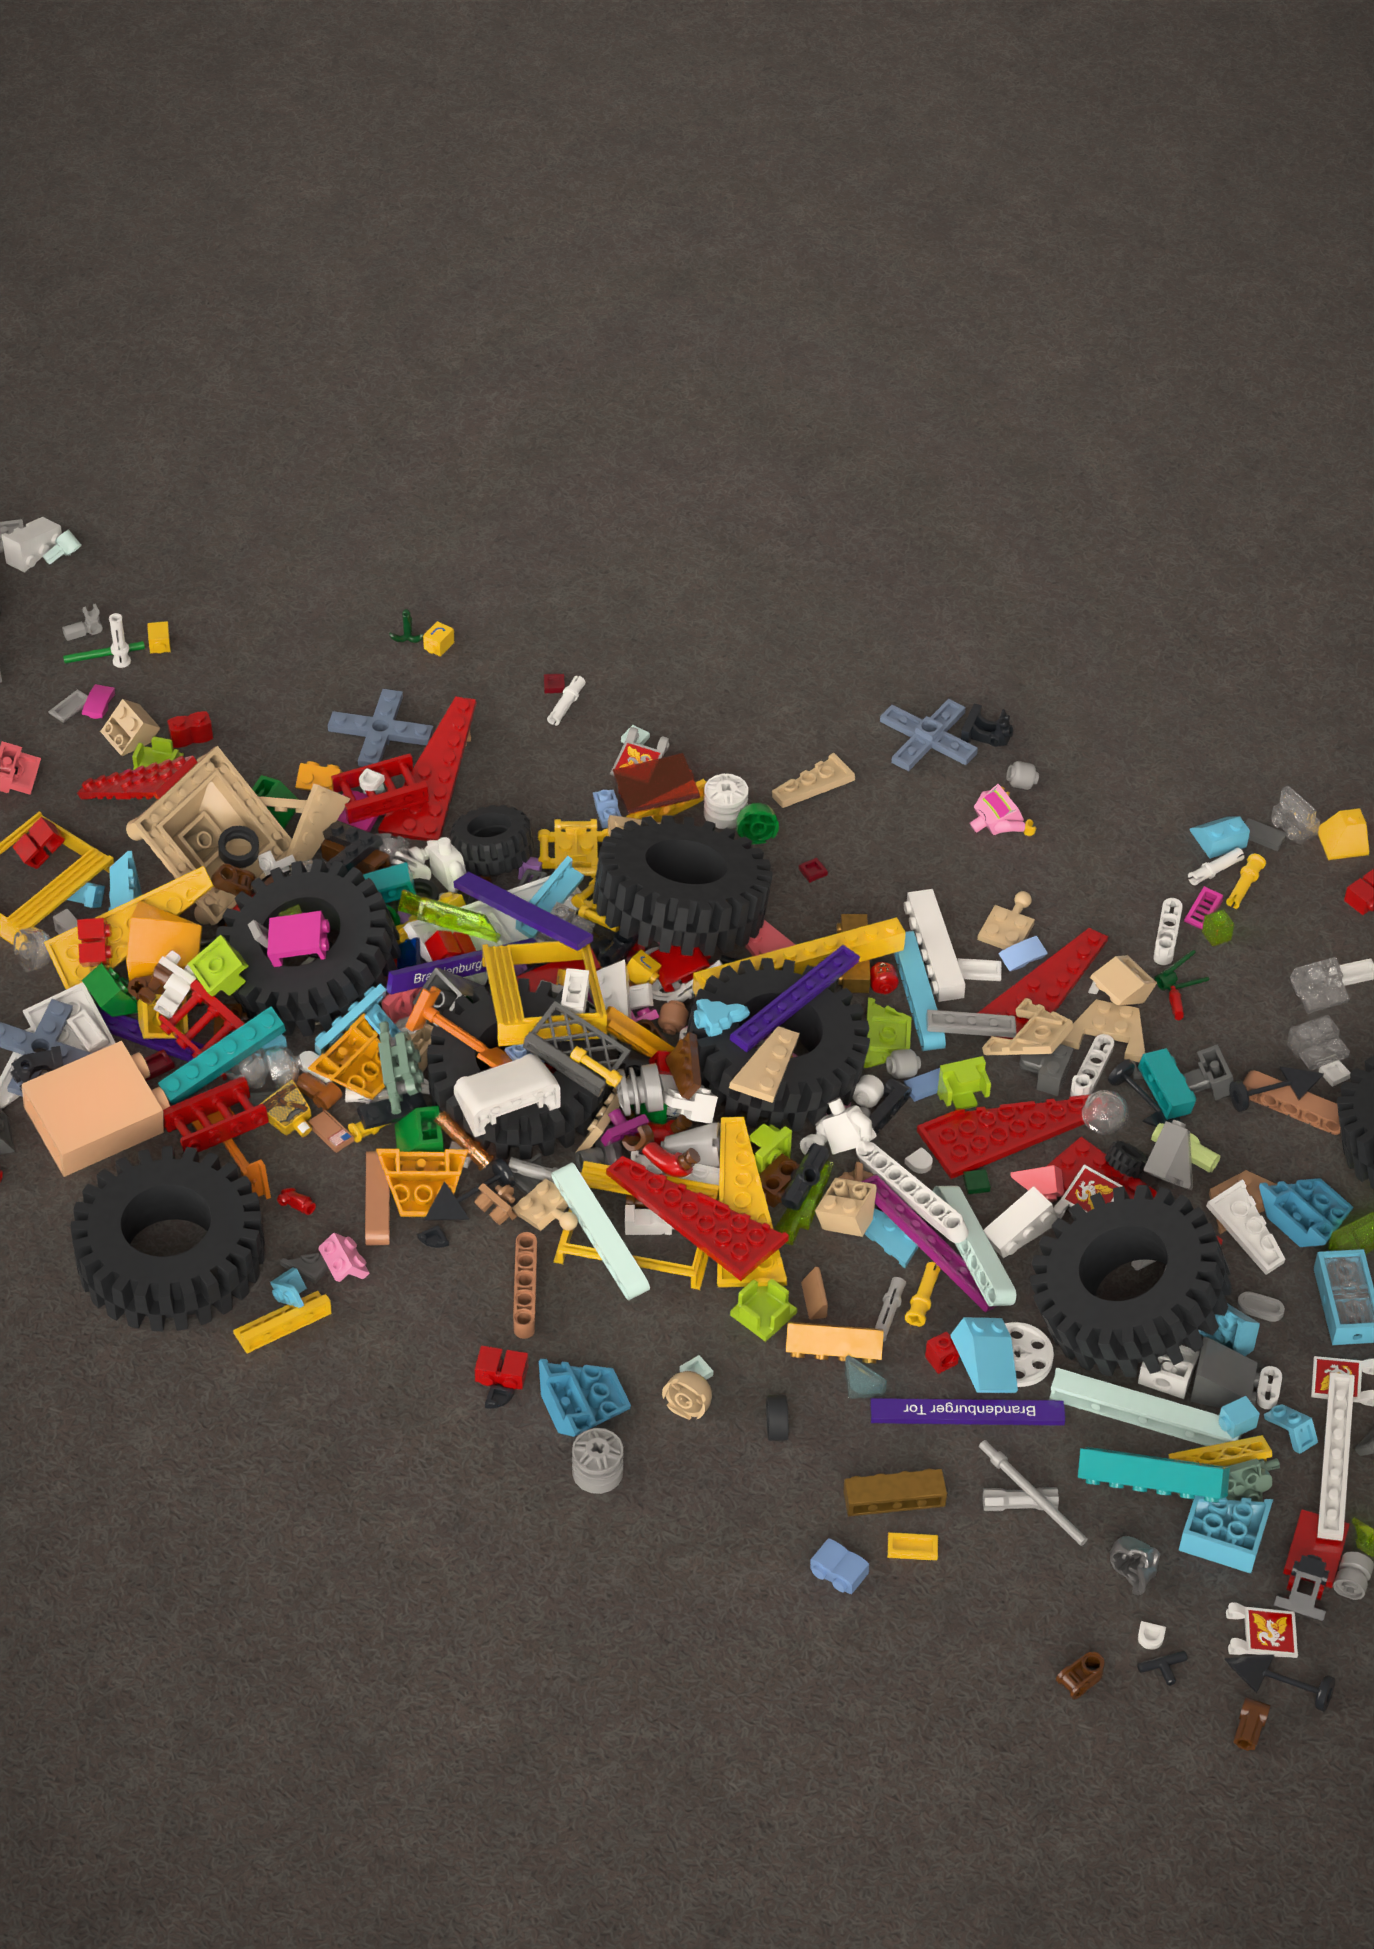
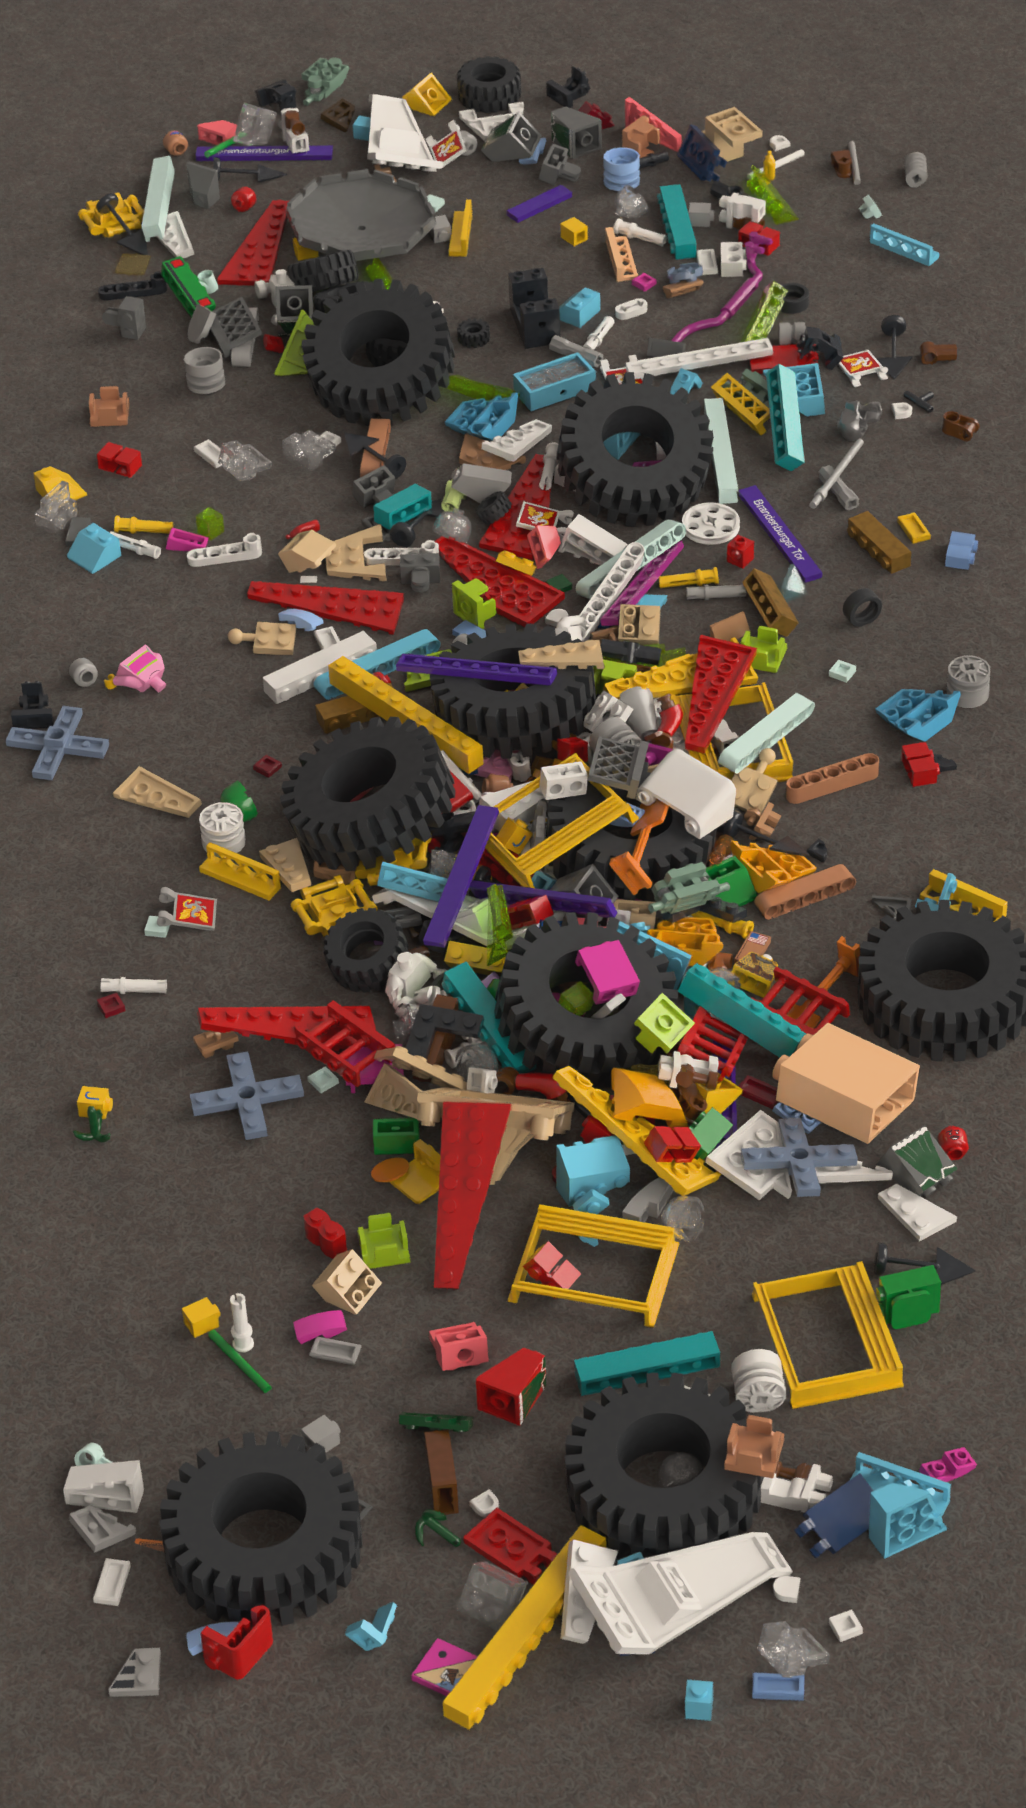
camera: 110 degrees left, 5 degrees down
(35, 1062) = (845, 1130): black tile -> none
(87, 1031) = (759, 1132): white tile -> none
(91, 625) = (207, 1383): light grey bar -> none
(234, 833) = (492, 1084): black tyre -> none
(236, 880) = (531, 1087): reddish brown piece -> none
(297, 1201) = (842, 930): red arm -> none
(314, 774) = (335, 1116): light orange bracket -> none
(343, 1257) = (882, 886): bright pink bracket -> none
(370, 780) = (345, 1045): white tile -> none
(606, 805) = (257, 915): light blue slope -> none
(612, 1077) = (630, 751): yellow bar -> none
(643, 969) = (465, 802): yellow brick -> none
(656, 783) = (226, 876): clear red piece -> none
(685, 1066) = (590, 707): reddish brown wing -> none
(688, 1394) = (872, 656): tan cylinder -> none
(718, 1016) = (537, 690): medium azure rock -> none
(971, 1023) = (404, 617): light grey tile -> none
(986, 1354) = (731, 522): medium azure slope -> none
(1026, 1150) = (510, 559): none -> yellow wing
(1038, 1036) = (400, 569): tan wing -> none
(1168, 977) = (279, 538): dark green plant -> none
(1238, 1417) = (708, 393): medium azure brick -> none

